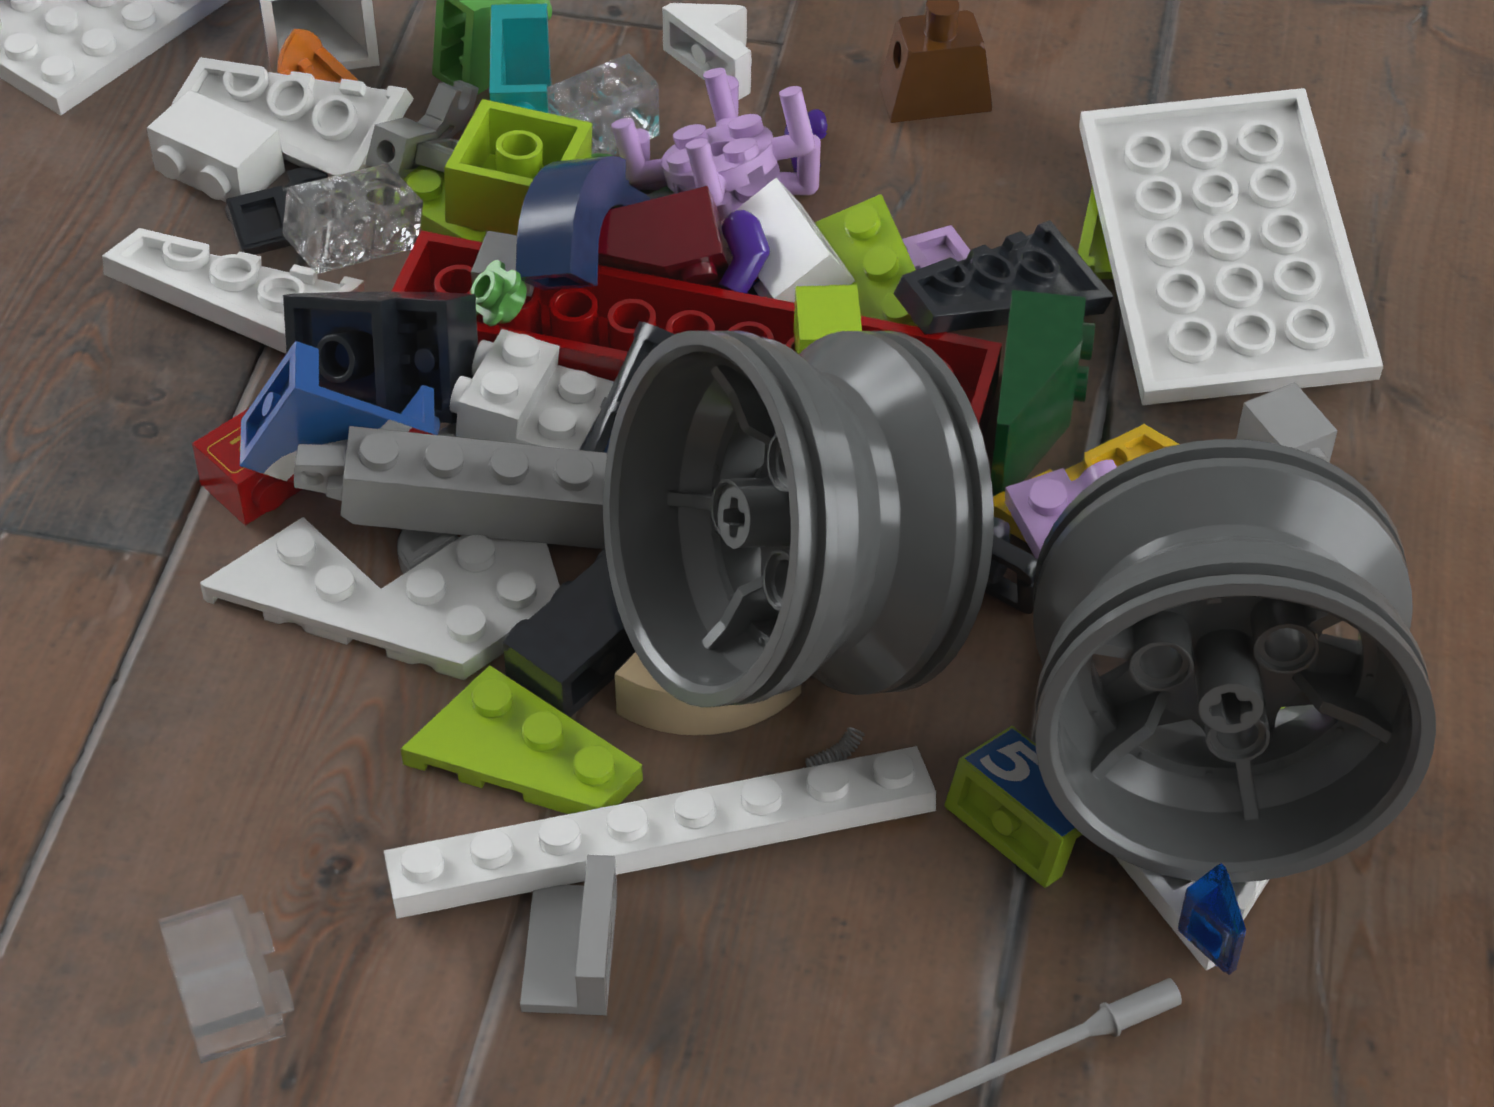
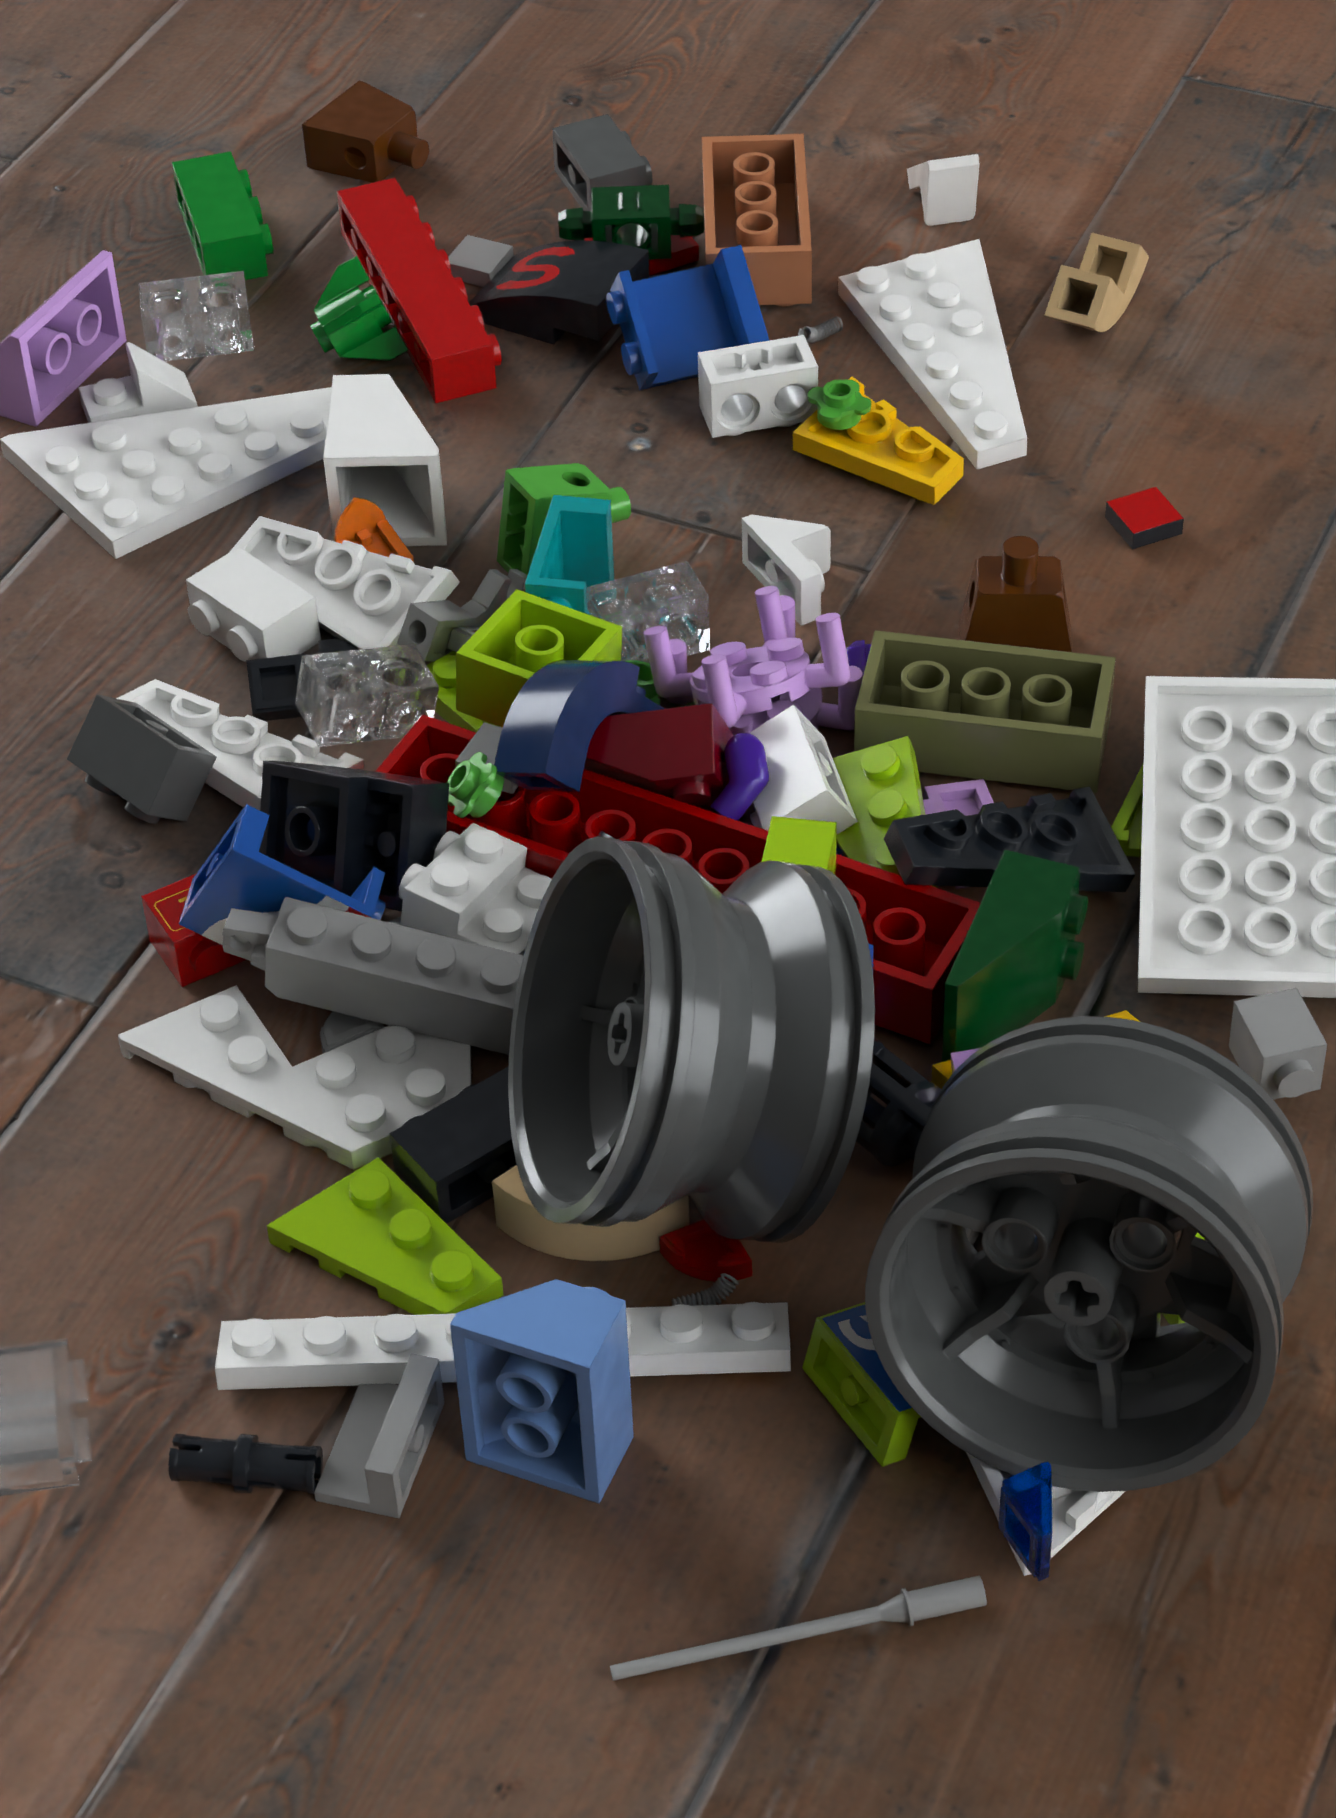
camera: 15 degrees right, 5 degrees down
(150, 309) = (140, 760): none -> dark grey brick
(446, 987) = (245, 1463): none -> black pin
(733, 867) = (546, 1386): none -> medium blue slope
(823, 710) = (705, 1253): none -> red tile
(941, 159) = (988, 709): none -> olive brick

